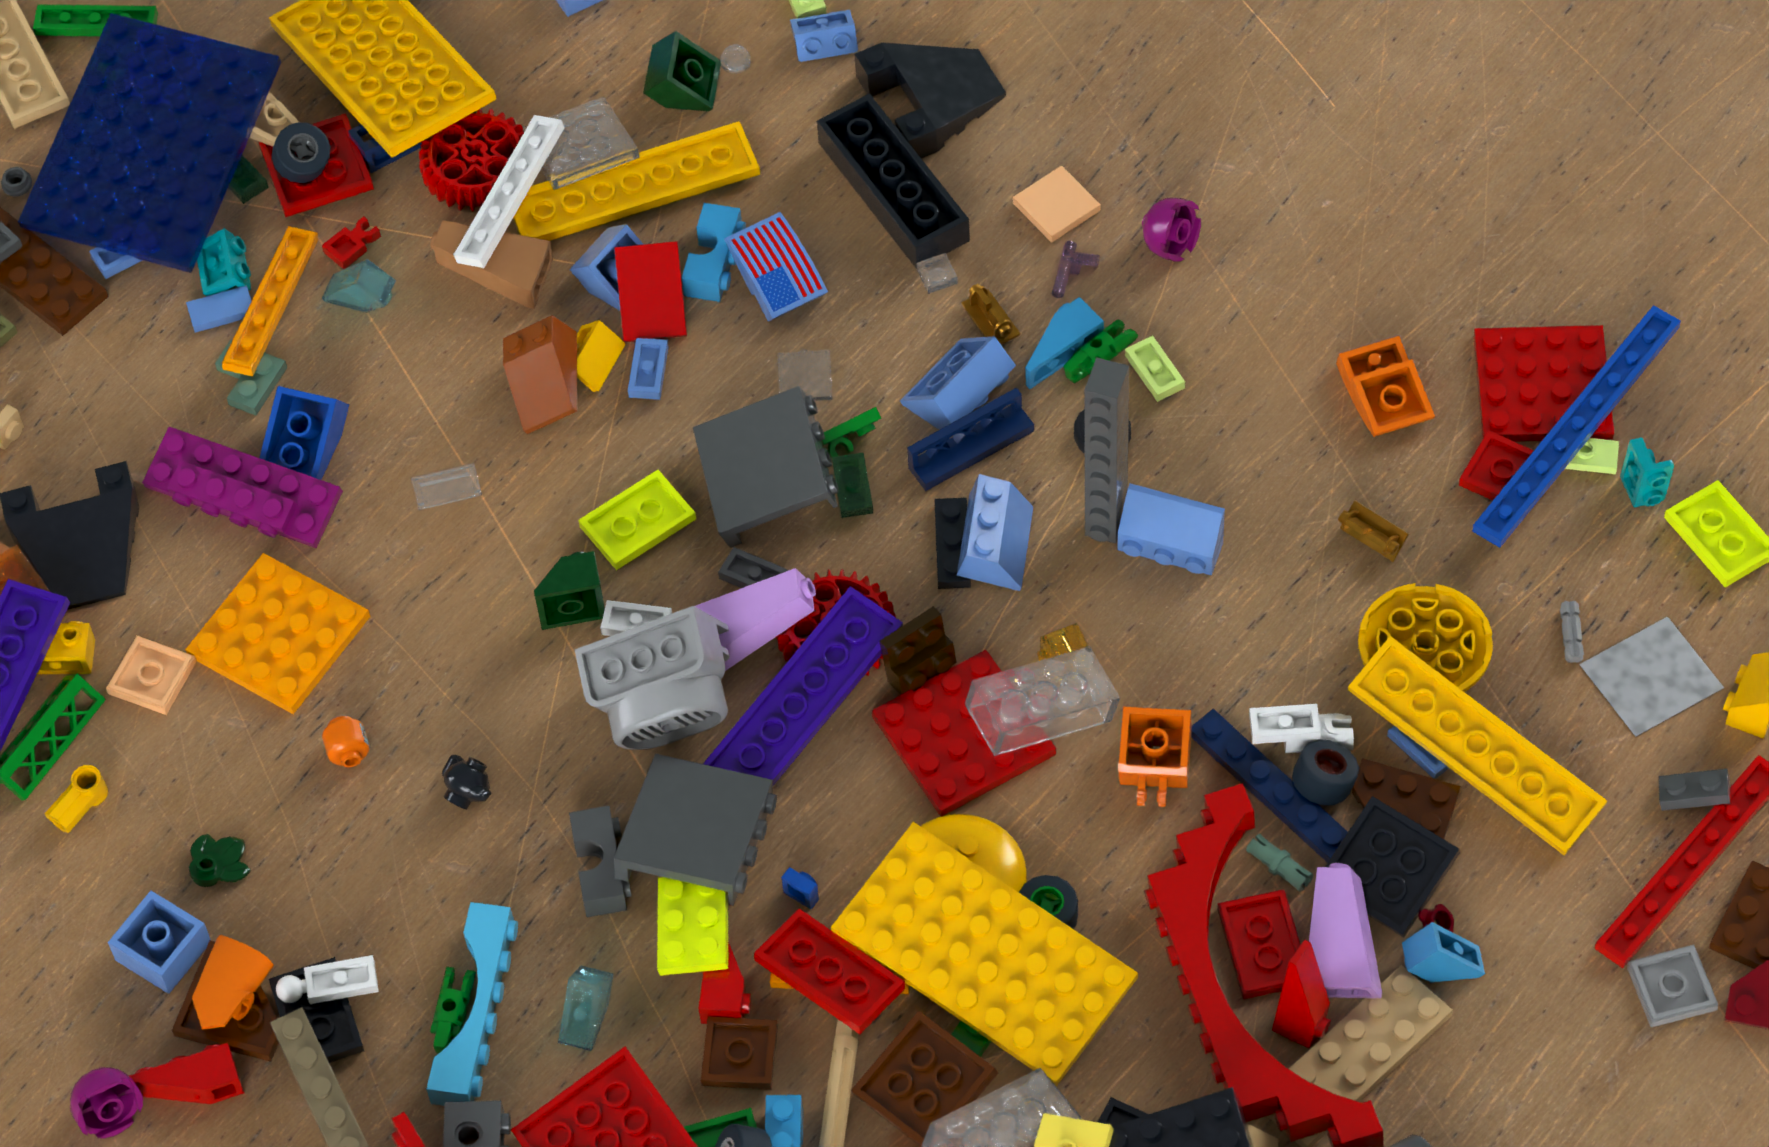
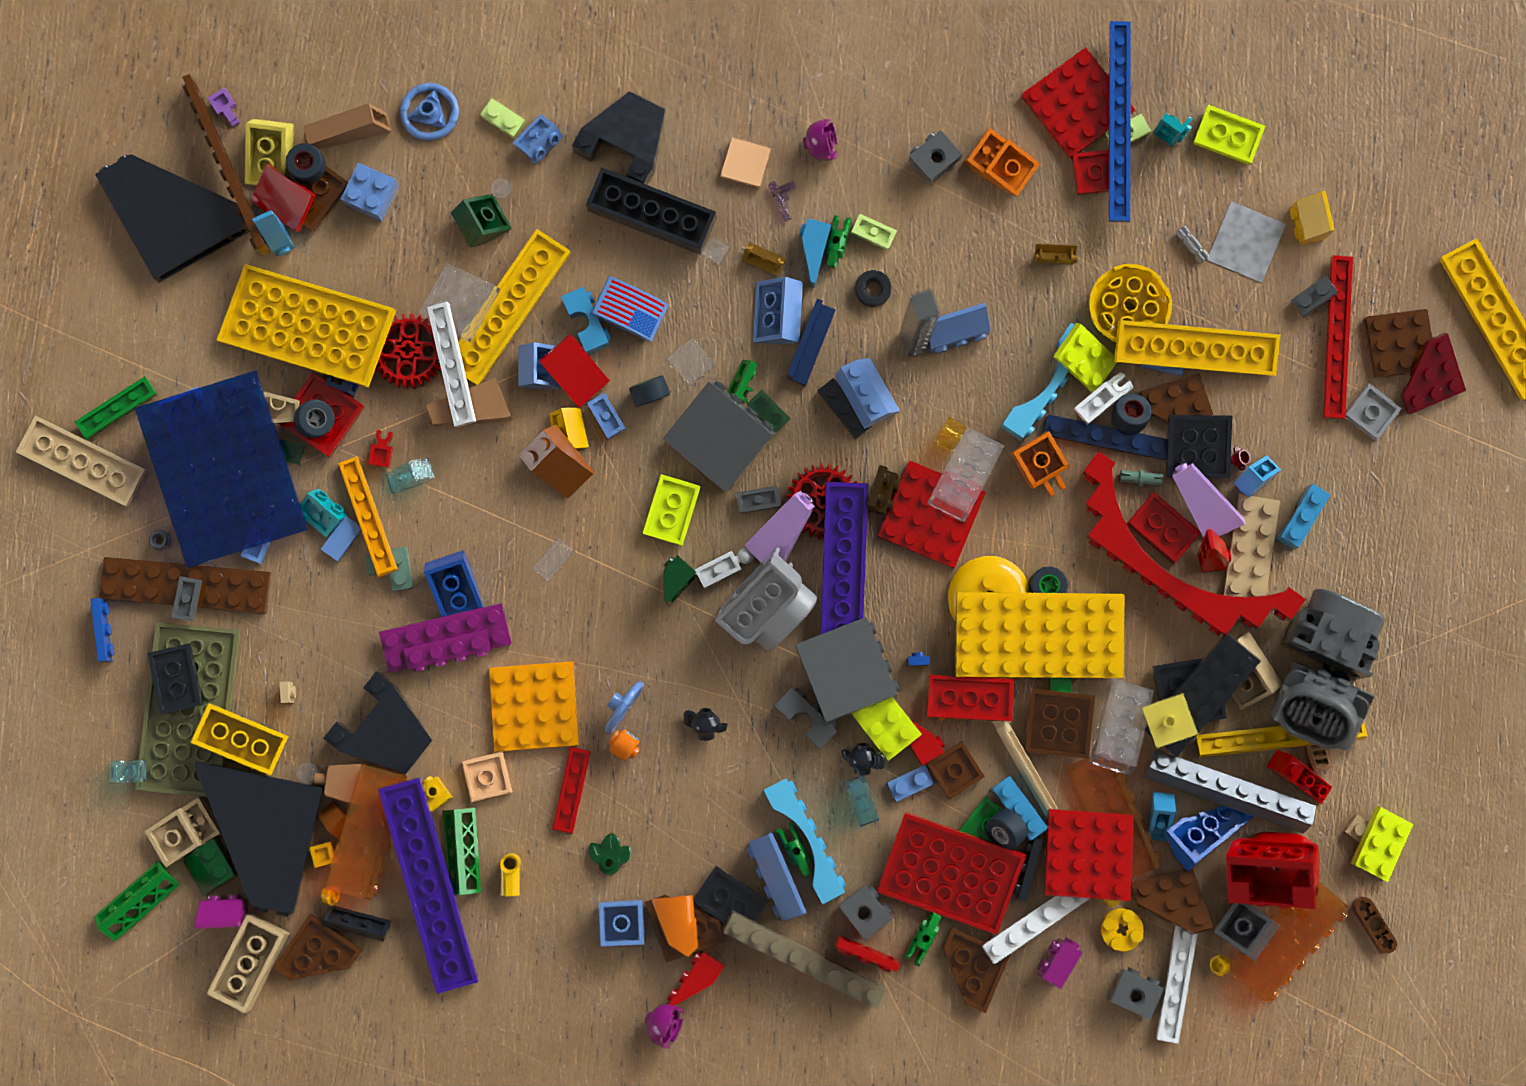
camera: 40 degrees left, 25 degrees up
(238, 757) = (571, 790): none -> red tile
(331, 981) = (728, 882): white plate -> none
(382, 690) = (622, 705): none -> medium blue piece
(399, 1021) = (777, 877): none -> medium blue slope
(629, 954) = (864, 758): none -> black piece
(668, 1032) = (910, 783): none -> medium blue plate
(723, 369) = (649, 391): none -> black wheel
(1307, 648) = (1023, 416): none -> medium azure arch
(1308, 315) = (935, 145): none -> dark grey brick
(1314, 662) = (1085, 357): none -> neon yellow plate
(1446, 1052) = (1303, 518): none -> dark azure arch

